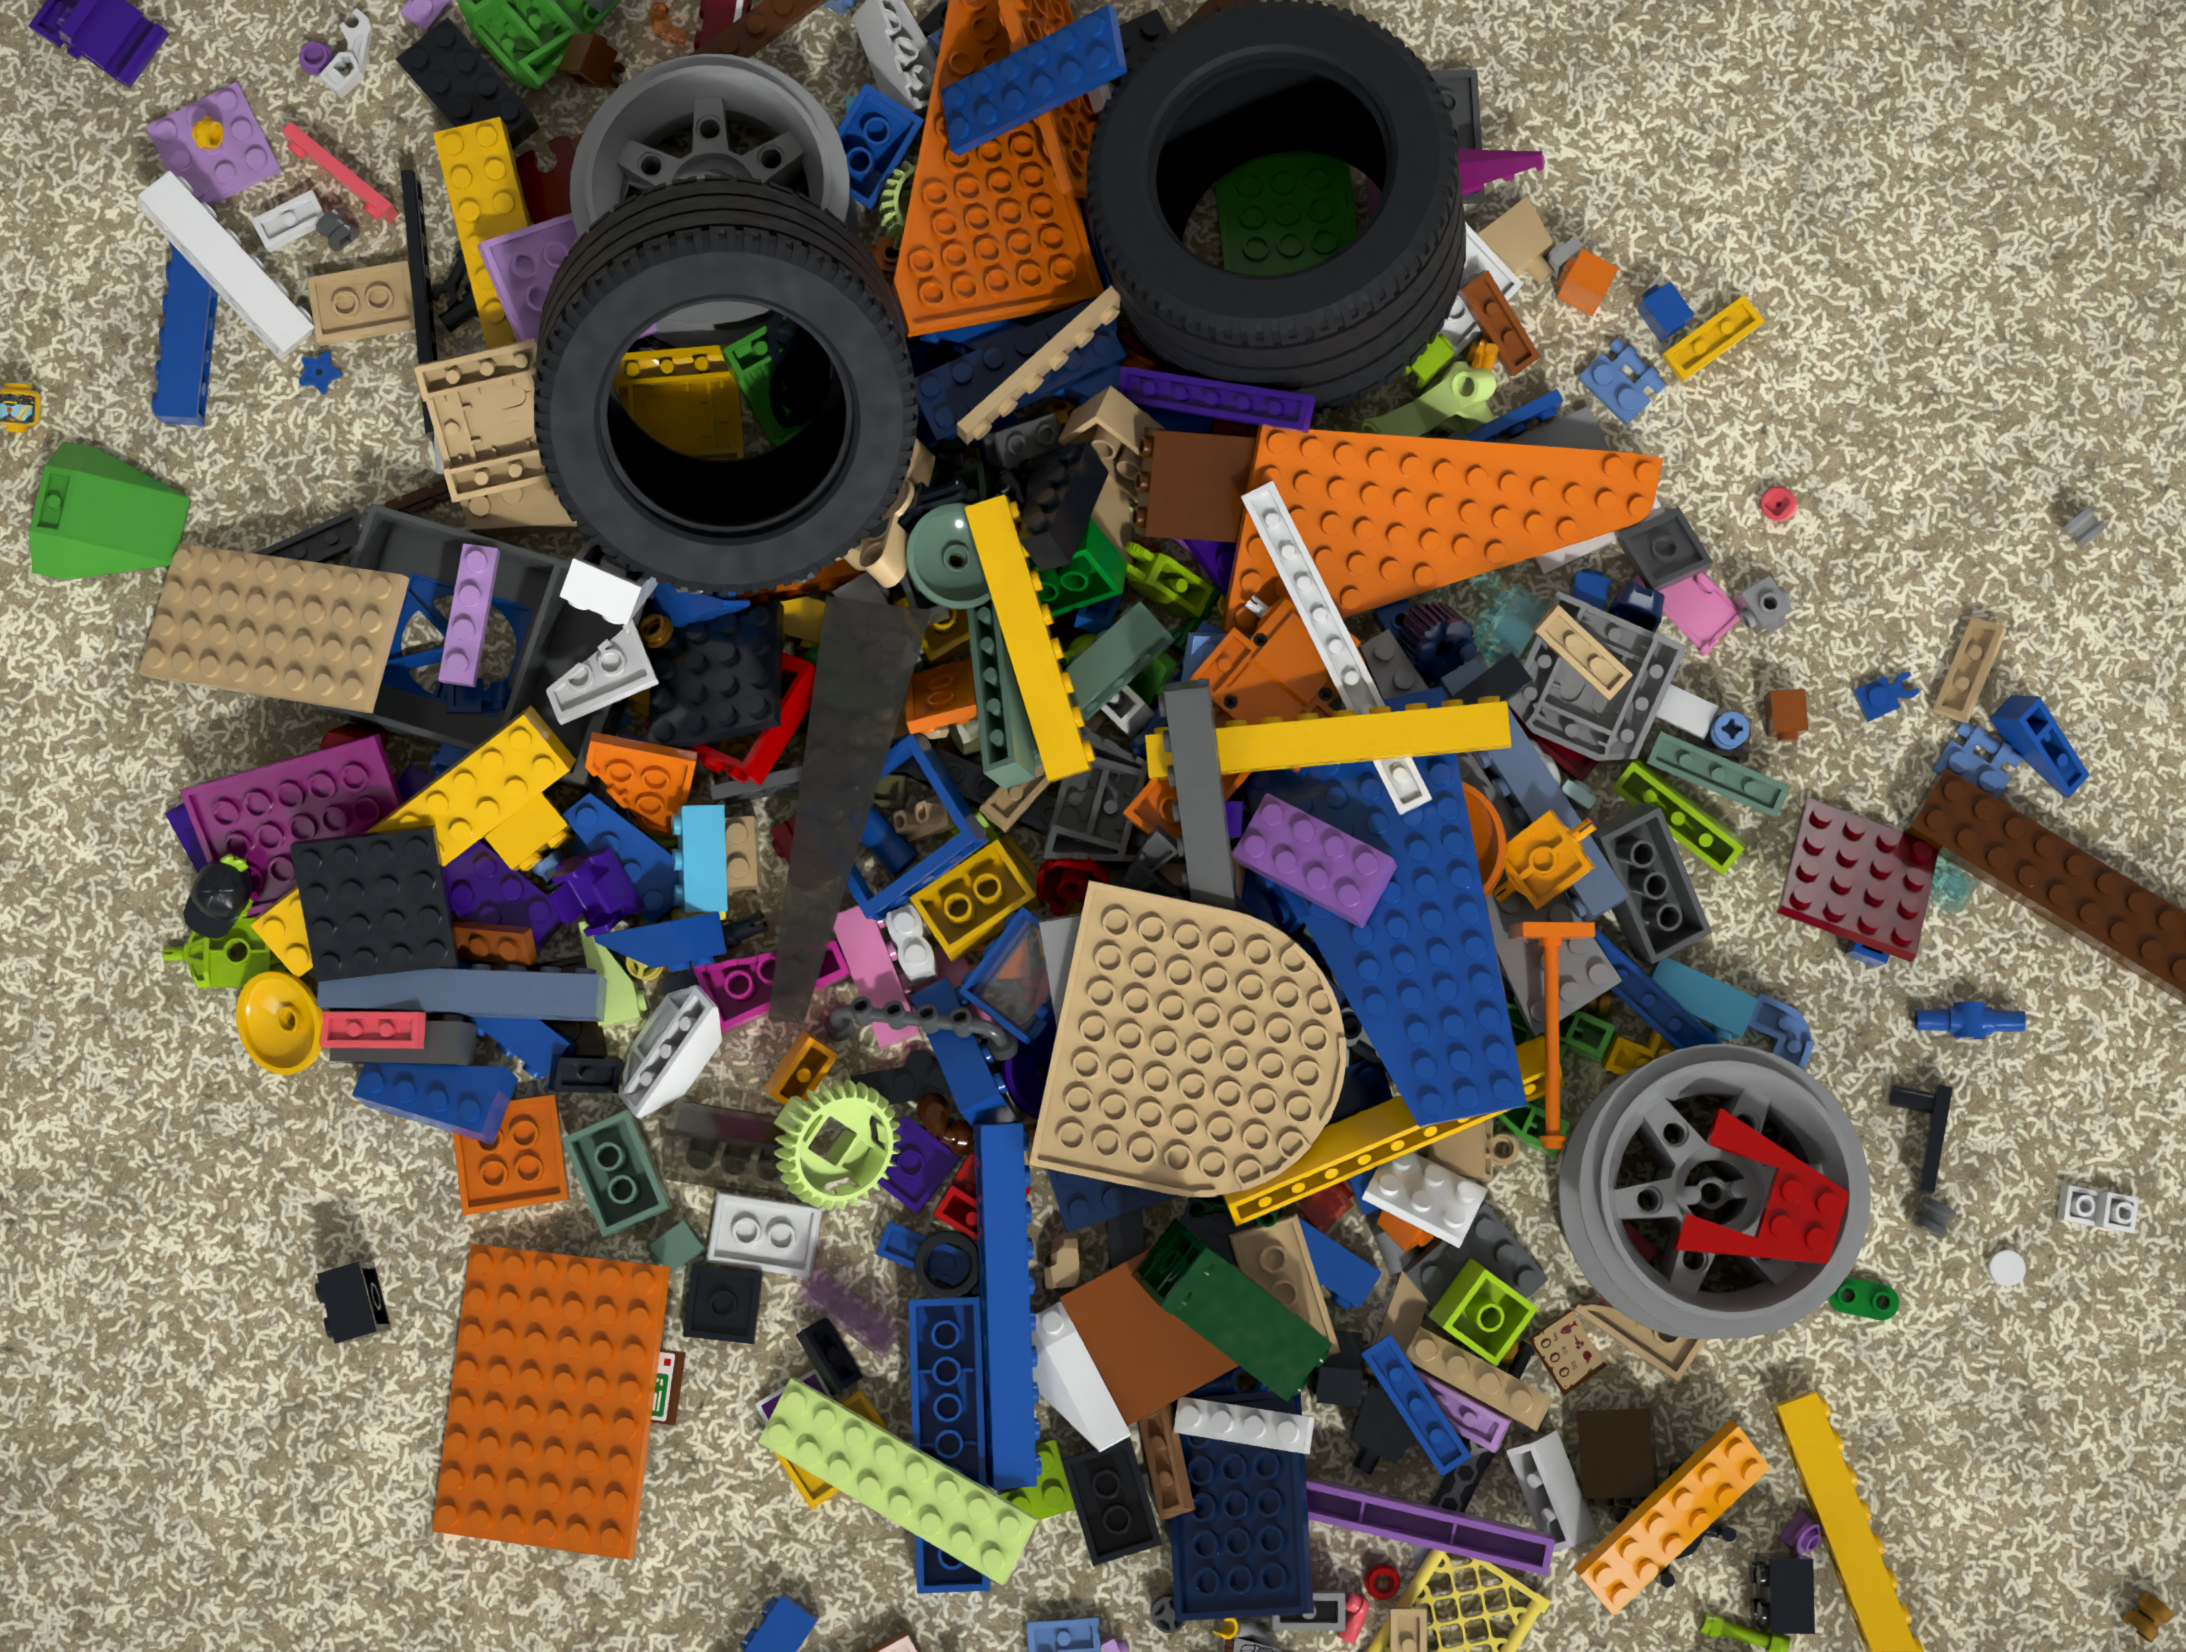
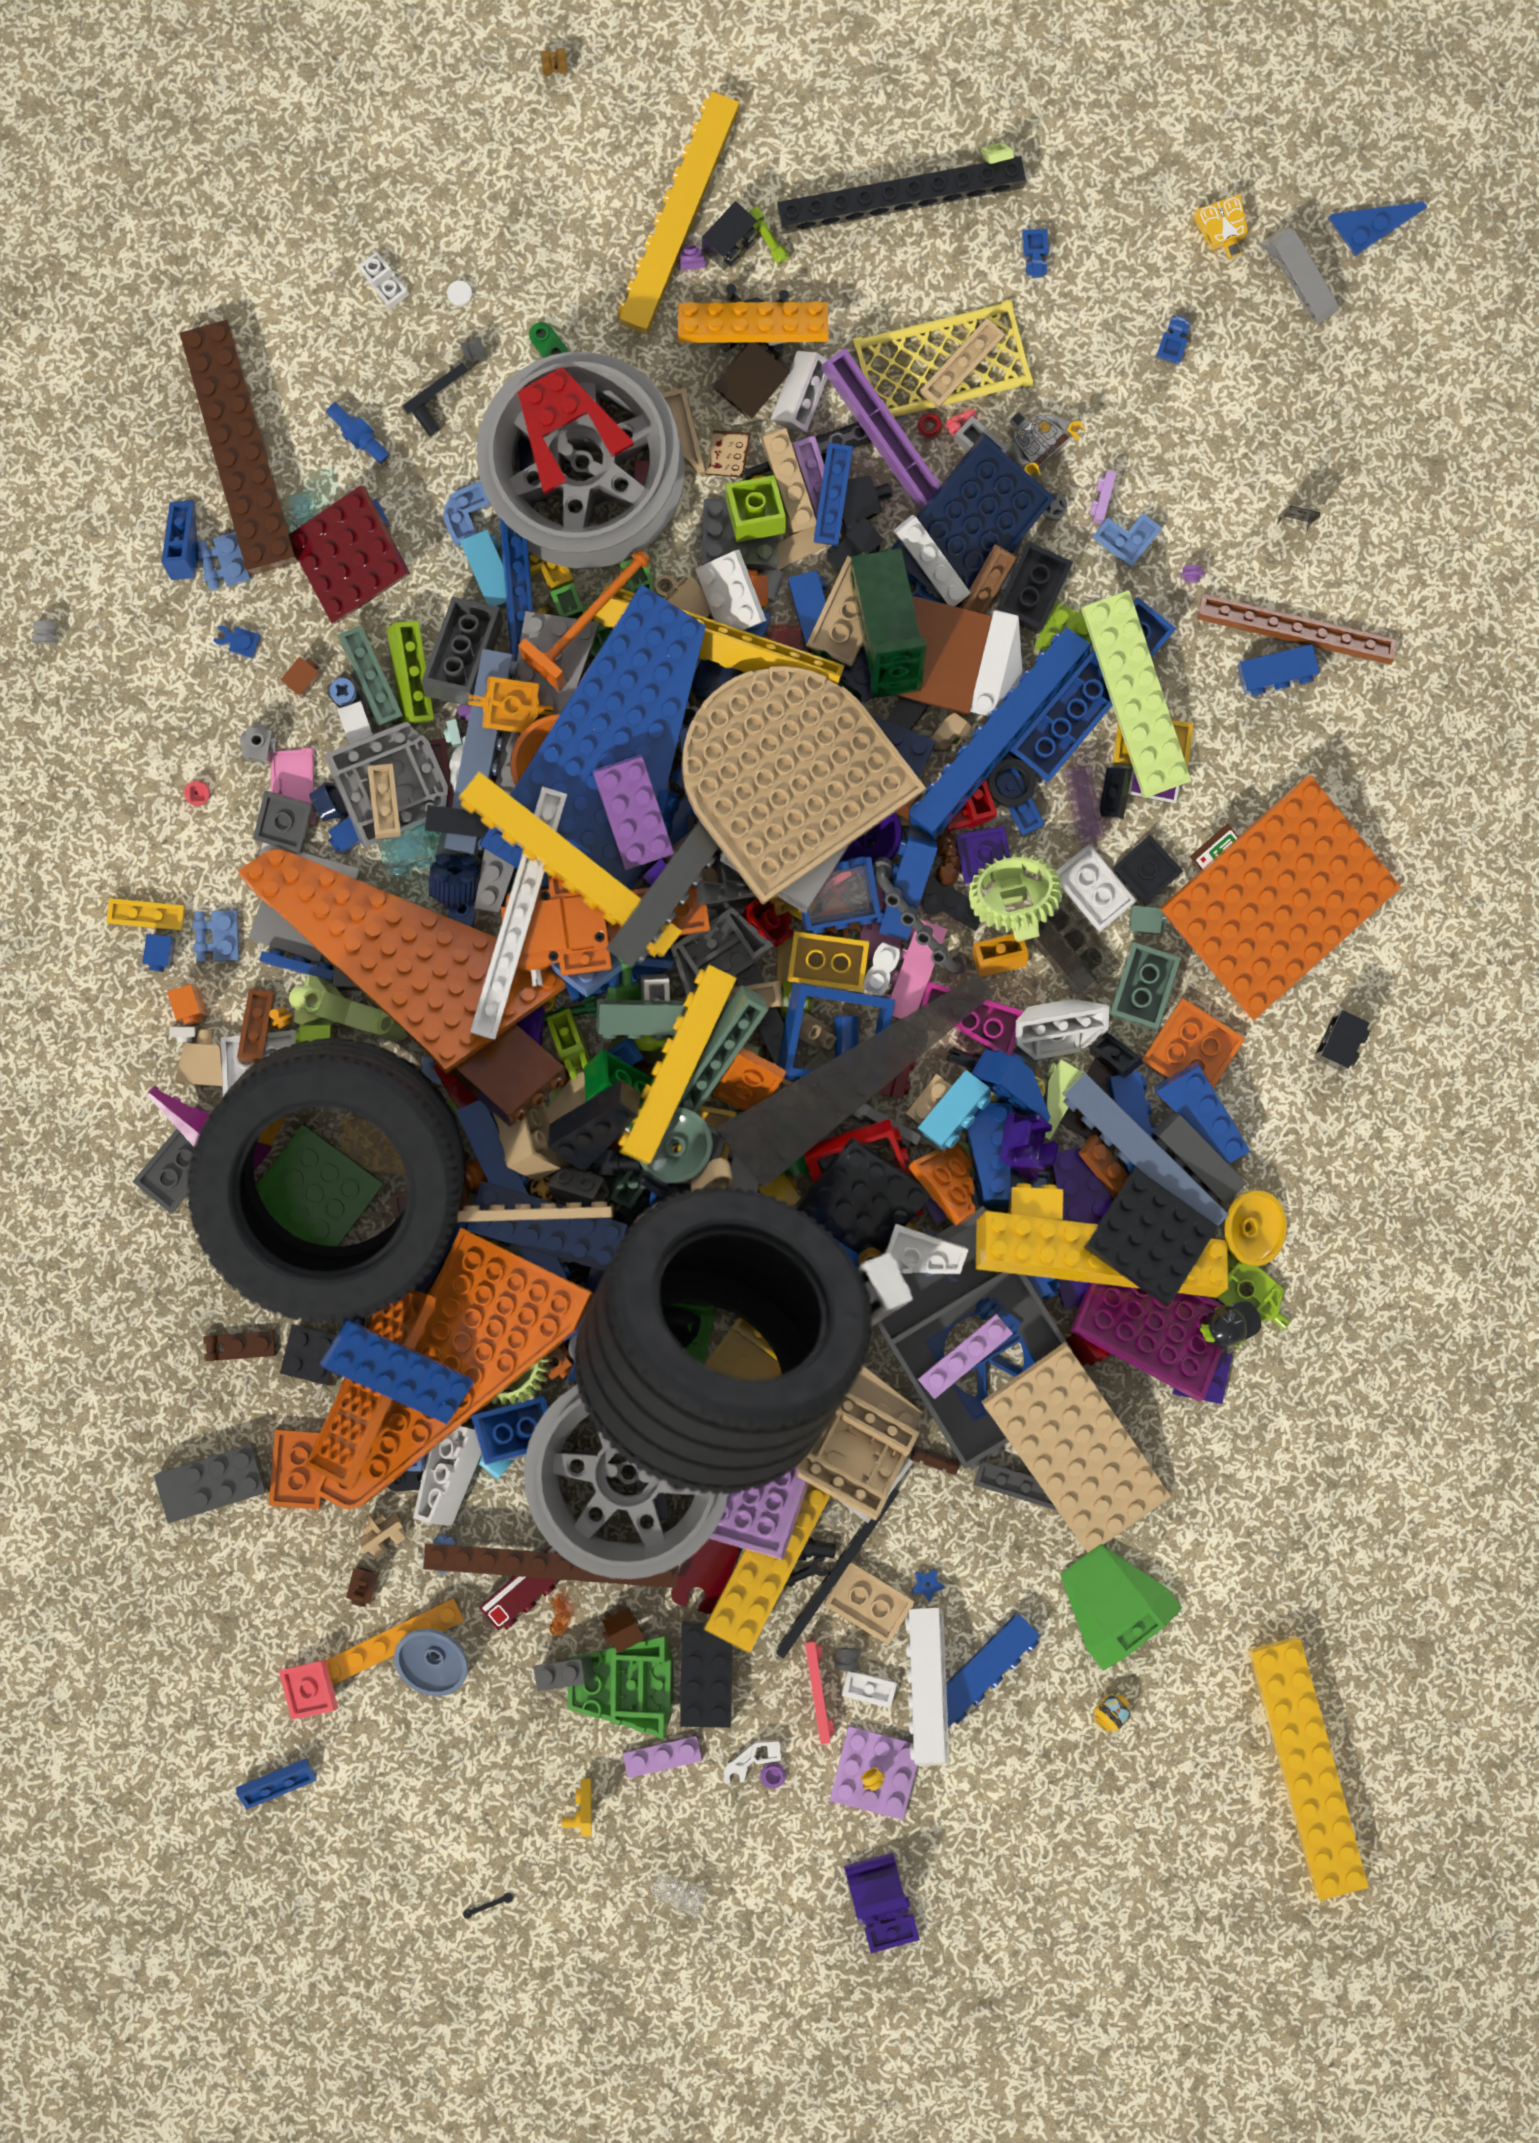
camera: 145 degrees left, 5 degrees up
(373, 1030) = (1209, 1174): coral plate -> none
(1217, 399) = (458, 1107): dark purple plate -> none
(1969, 669) = (180, 613): tan plate -> none

